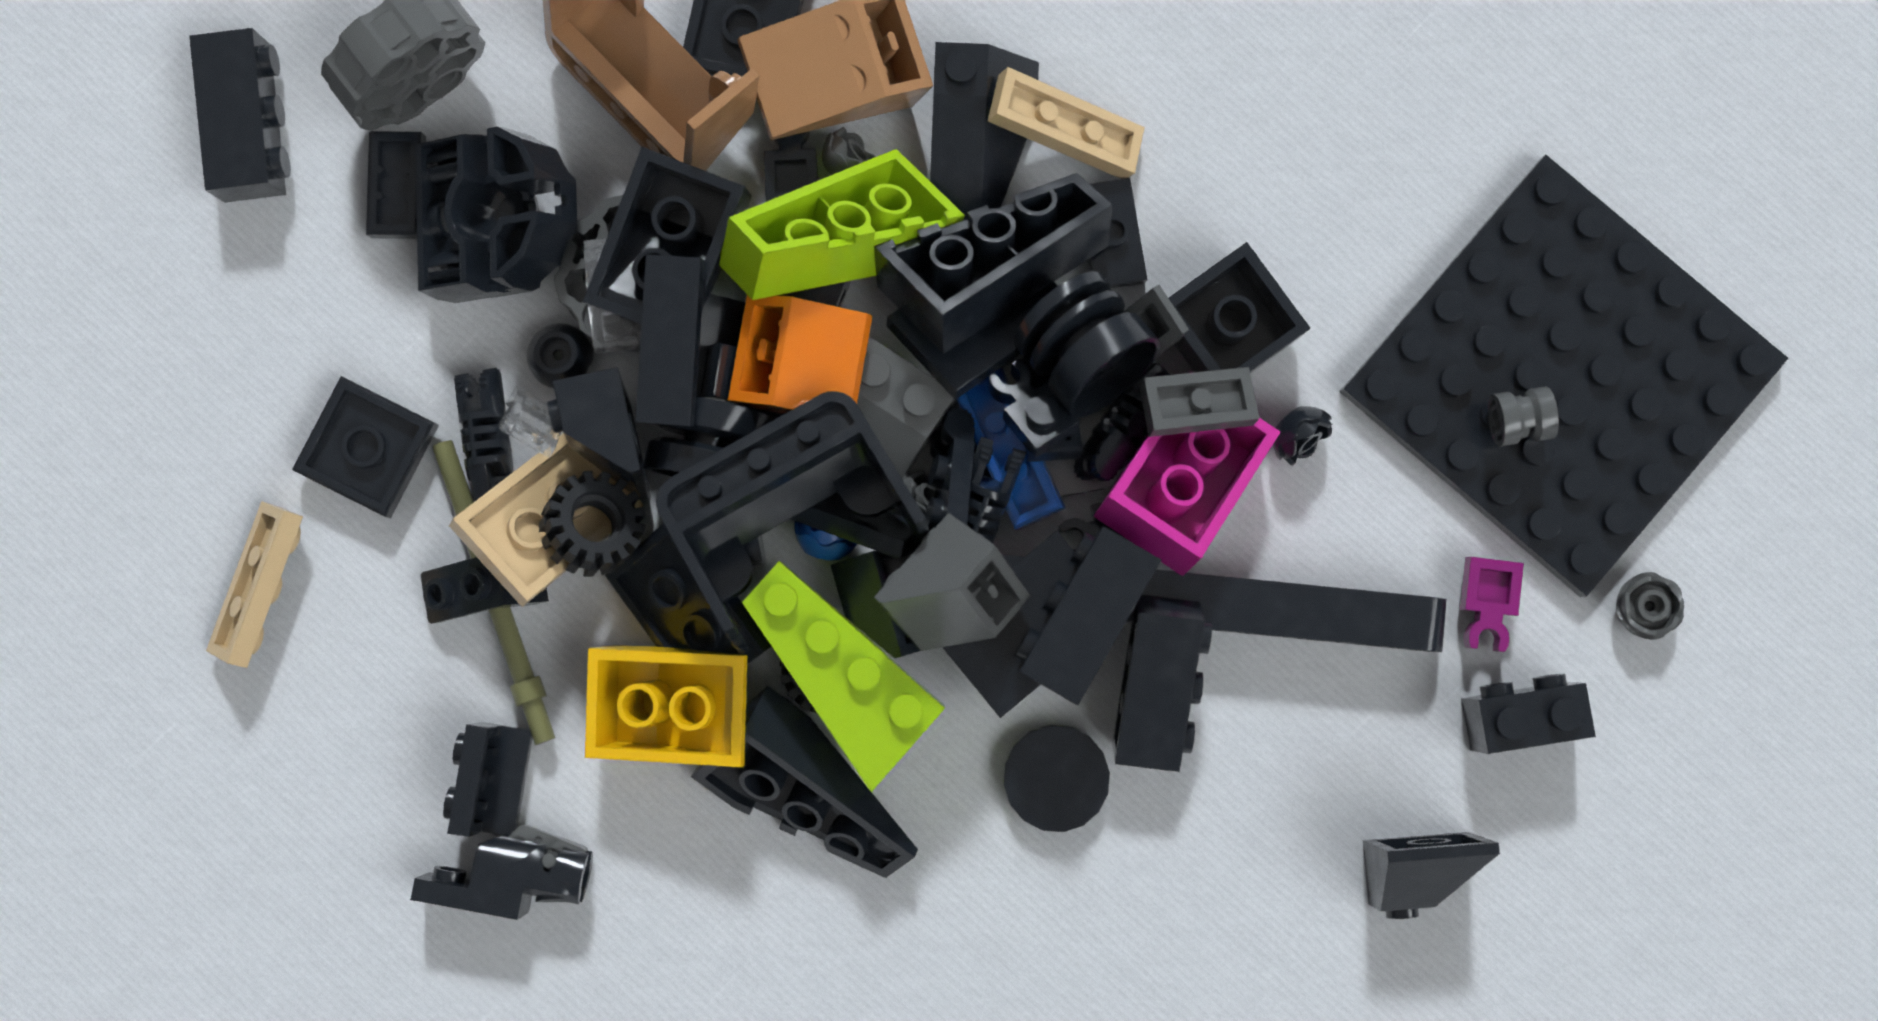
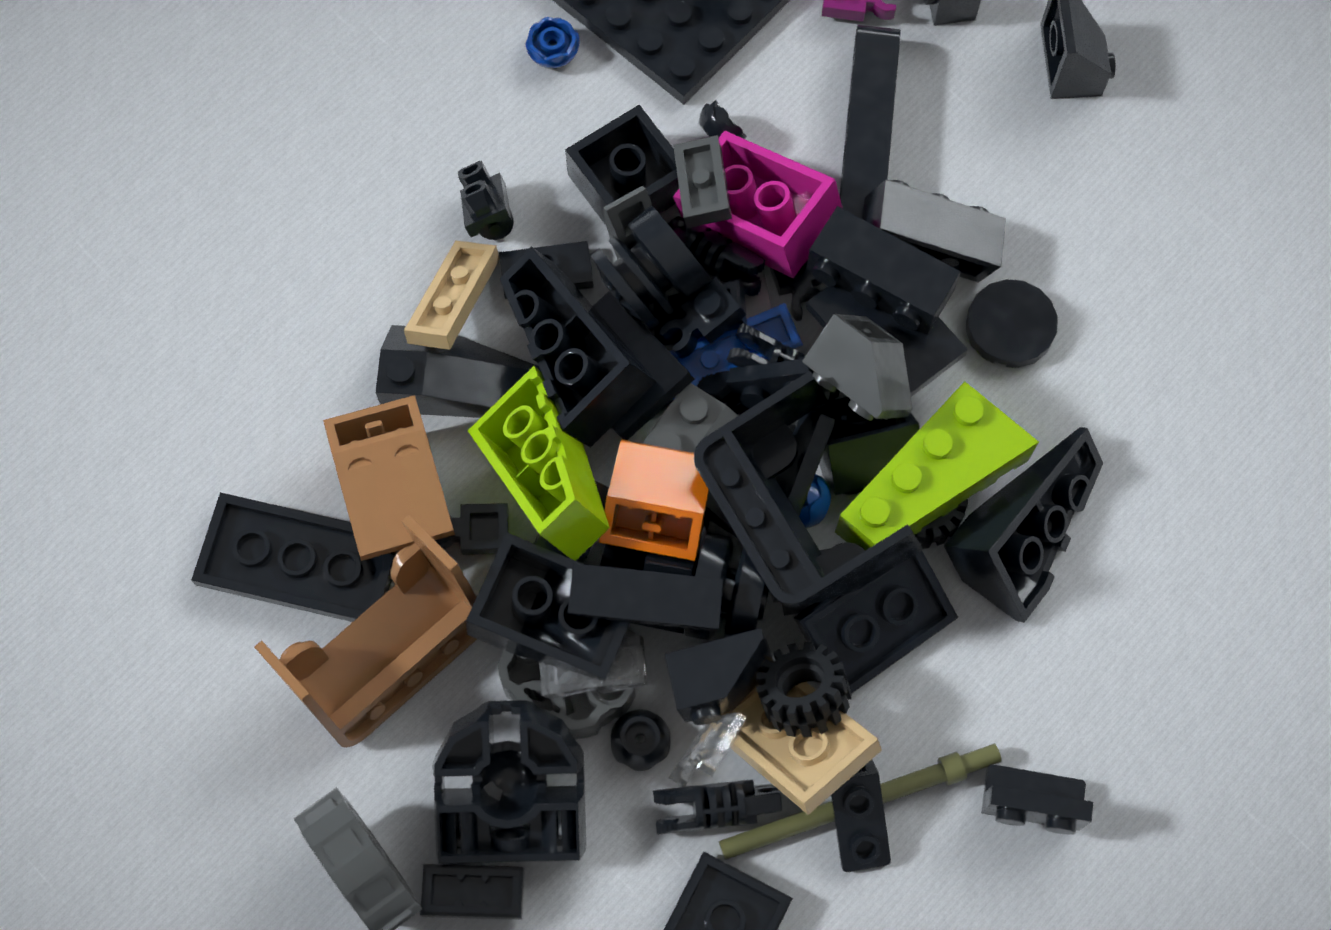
camera: 90 degrees left, 15 degrees down
(509, 873) = (1122, 783): black plate -> none
(666, 705) = (966, 622): yellow slope -> none
(843, 151) = (471, 479): dark grey plate -> none
(1187, 154) = (485, 203): none -> black hips
(1428, 226) = (552, 31): none -> blue plate

